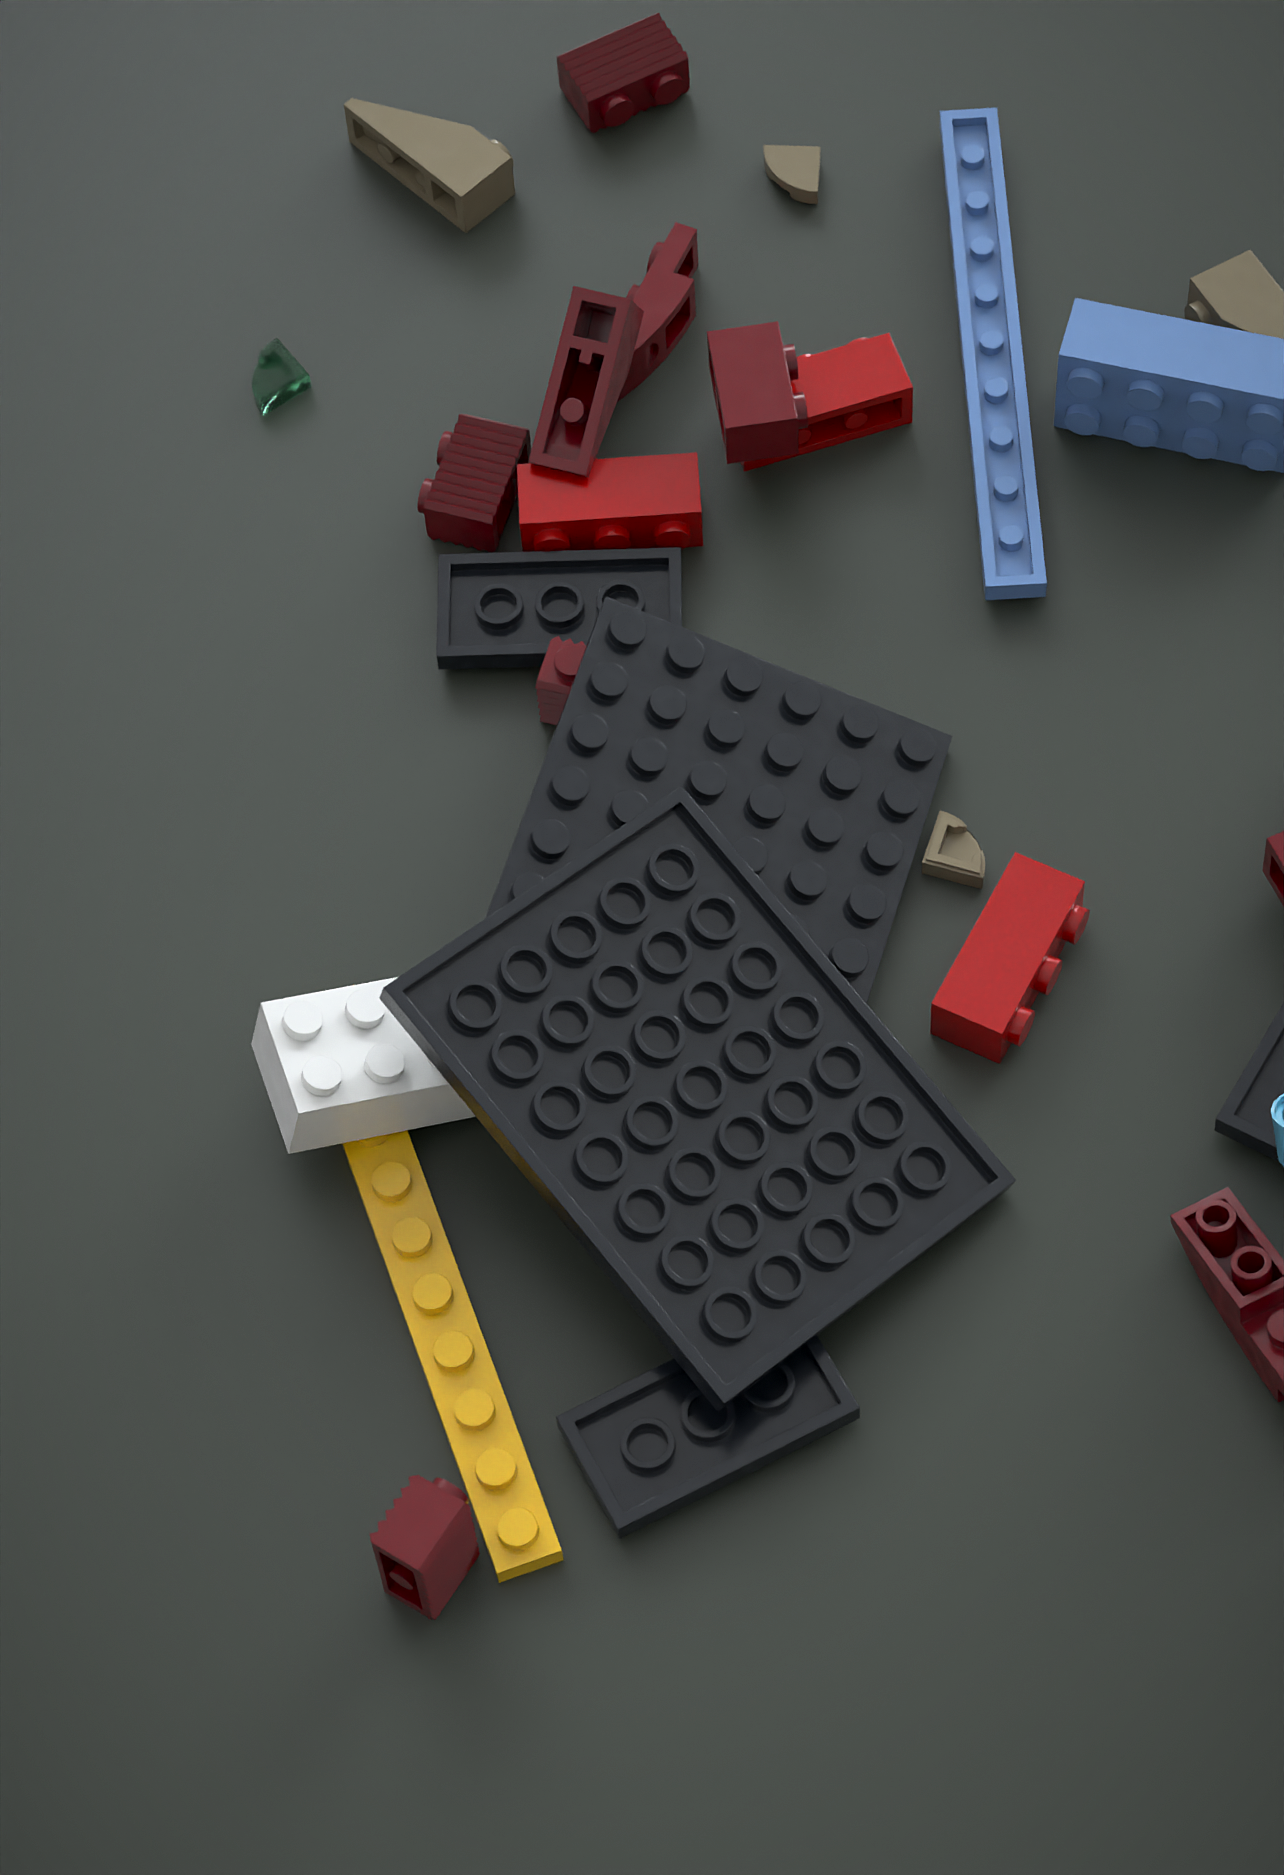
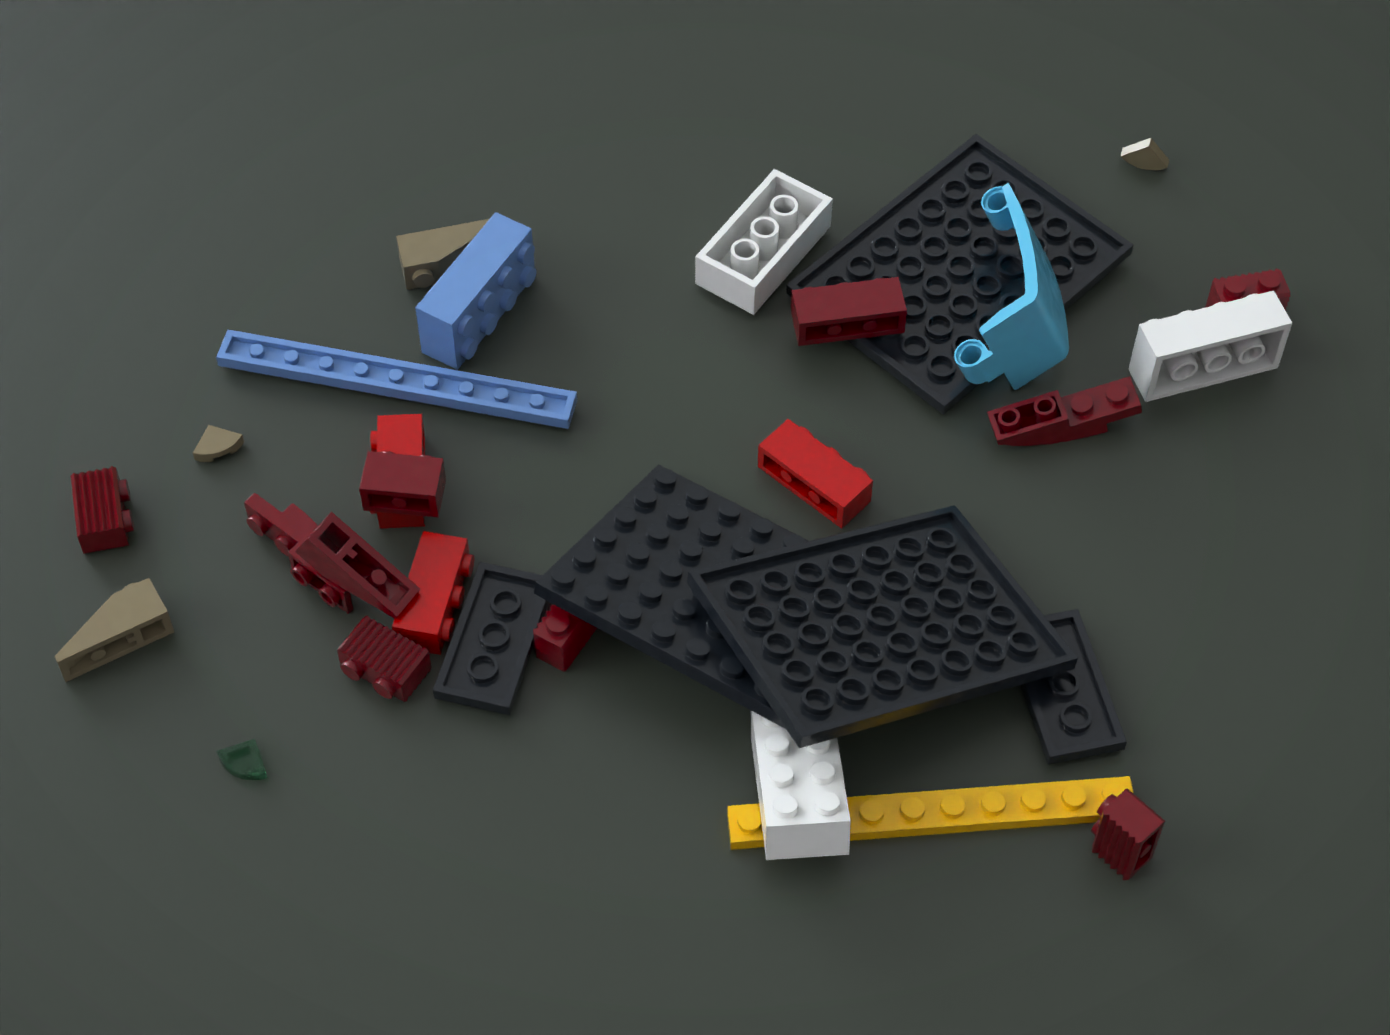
camera: 80 degrees left, 5 degrees down
(954, 853) = (732, 485): dark tan tile -> none

